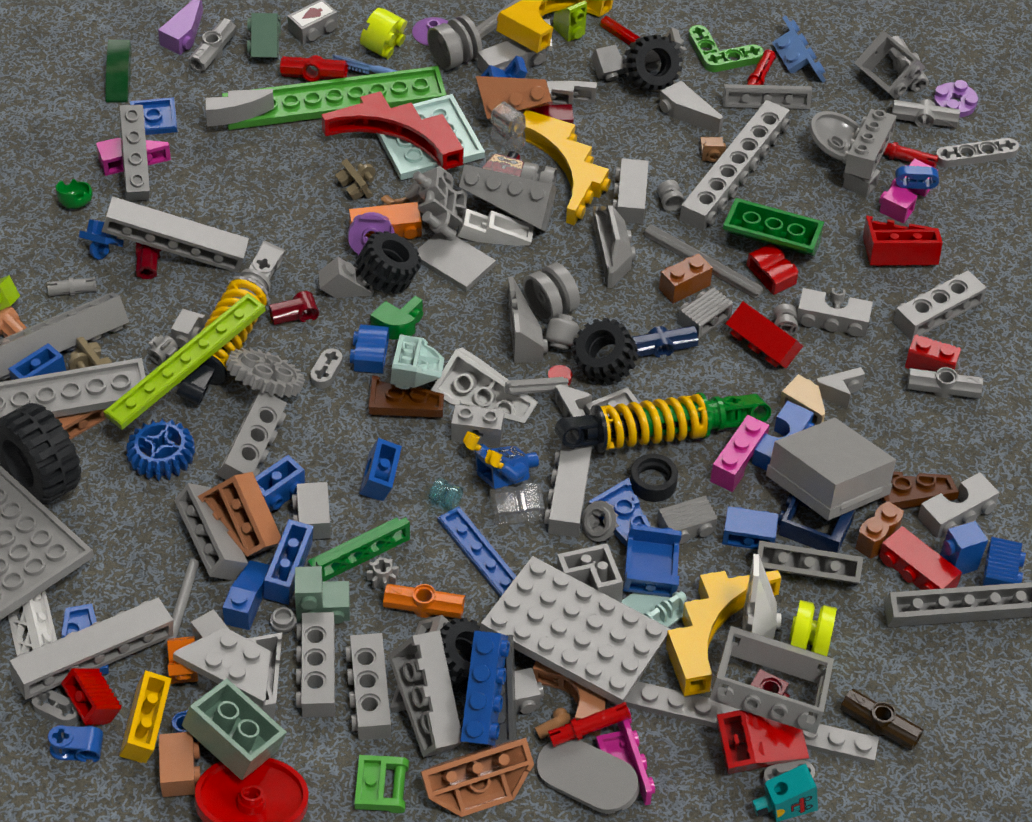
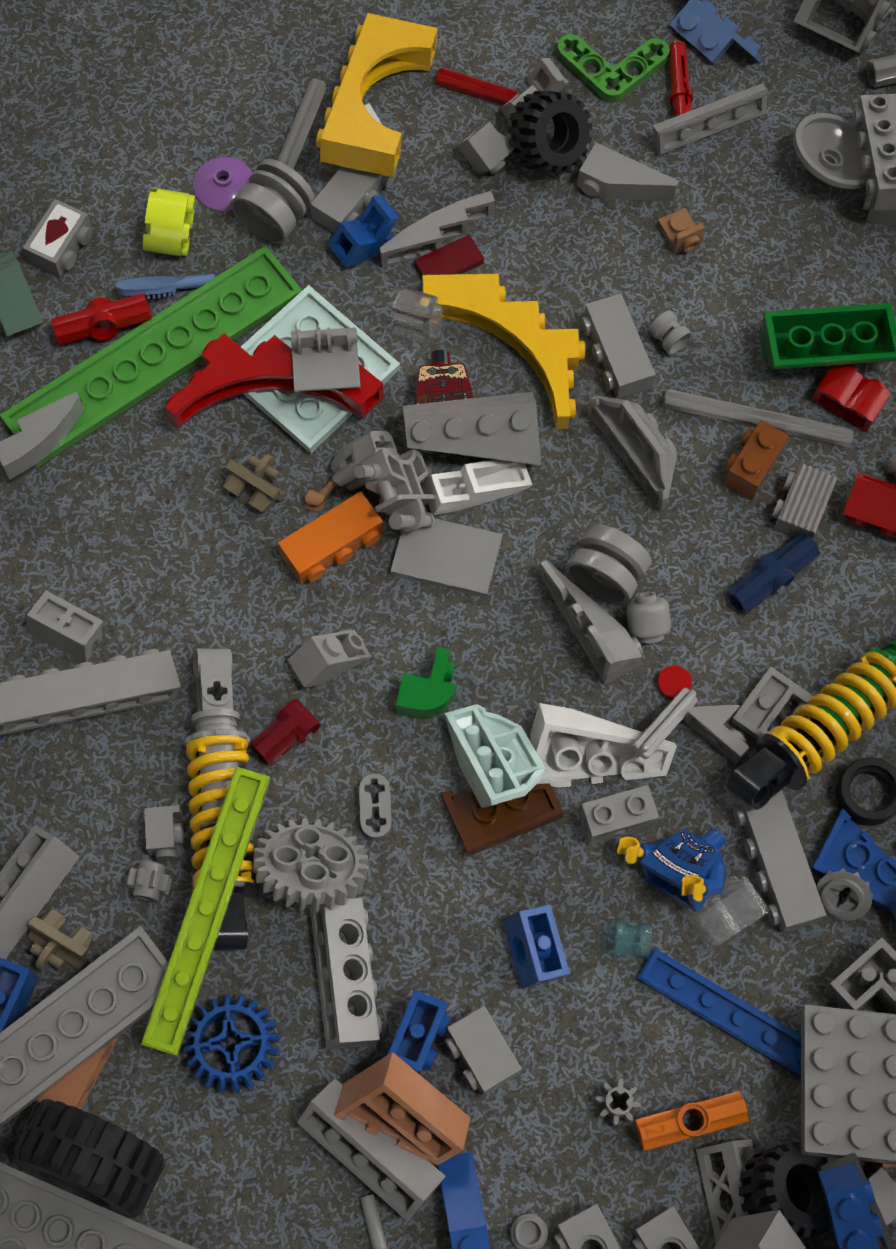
camera: 25 degrees left, 20 degrees up
(146, 261) = (49, 746): dark red piece -> none
(193, 205) = (64, 626): none -> light grey hinge
(290, 553) = (496, 1149): blue brick -> none
(317, 596) = (568, 1184): sand green brick -> none
(362, 548) = (565, 1075): green fence -> none
(363, 224) = (317, 563): medium lavender plate -> none
(370, 348) = (418, 752): blue brick -> none
(388, 262) = (366, 626): black tyre -> none
(433, 120) = (325, 359): none -> light grey hinge
(517, 92) = (397, 261): nougat wedge -> none
(544, 174) = (493, 378): light grey wheel -> none
(571, 21) = (403, 97): lime slope -> none
(595, 338) = (692, 629): black tyre -> none
(735, 165) = (730, 150): light grey brick -> none

